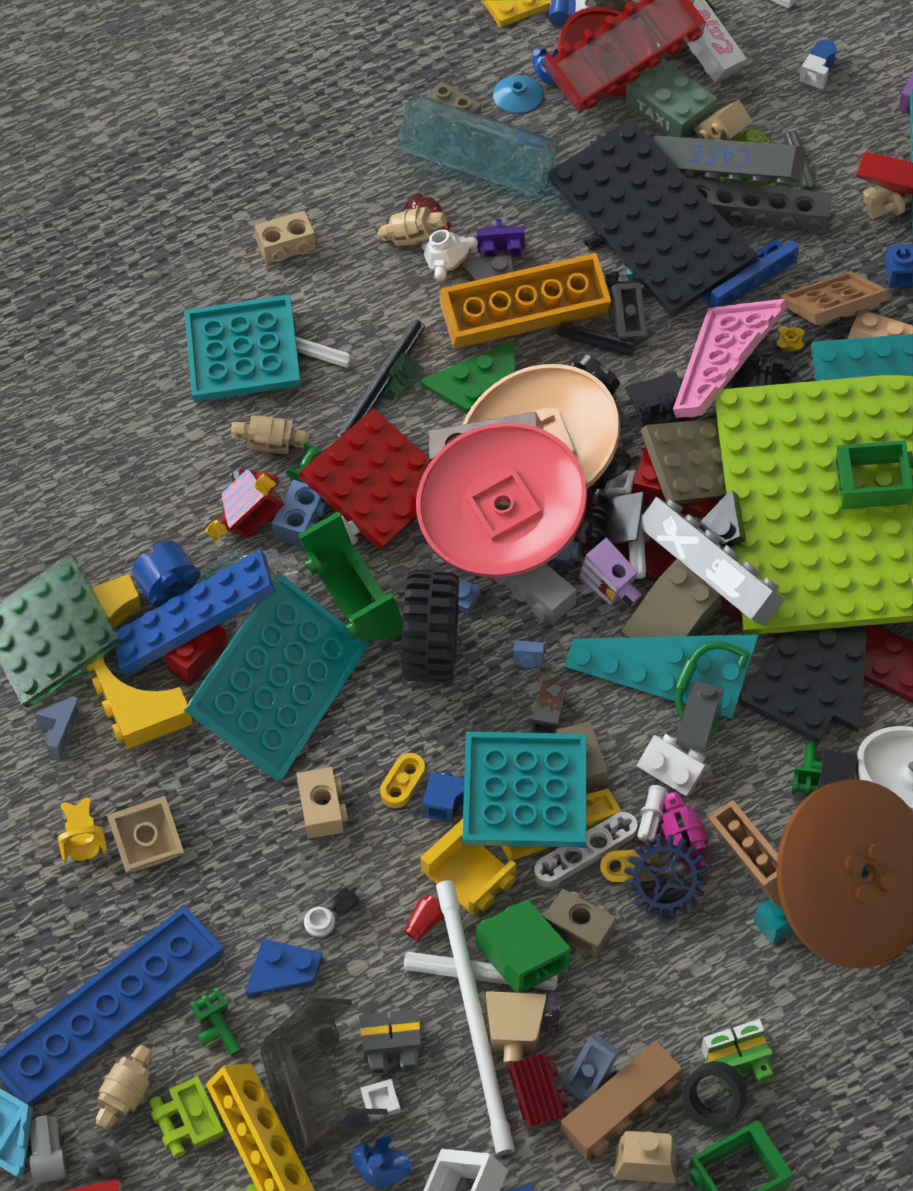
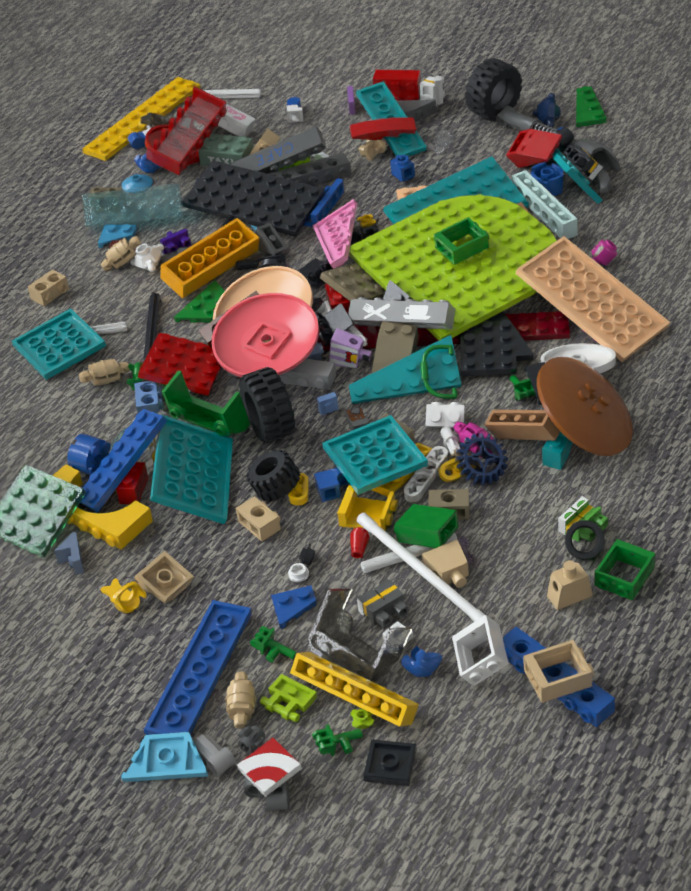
camera: 25 degrees left, 15 degrees down
(247, 504) = (115, 402): red torso -> none
(376, 745) = (273, 475): none -> black tyre
(403, 375) = (163, 318): clear green plate -> none
(433, 180) = (116, 232): none -> dark azure wing
(536, 1089) = (484, 585): dark red brick -> none
(591, 1068) = (507, 562): sand blue slope -> none
(621, 1100) = (535, 570): medium nougat brick -> none
(700, 716) = (446, 383): dark grey slope -> none
(835, 298) = (378, 191): medium nougat plate -> none

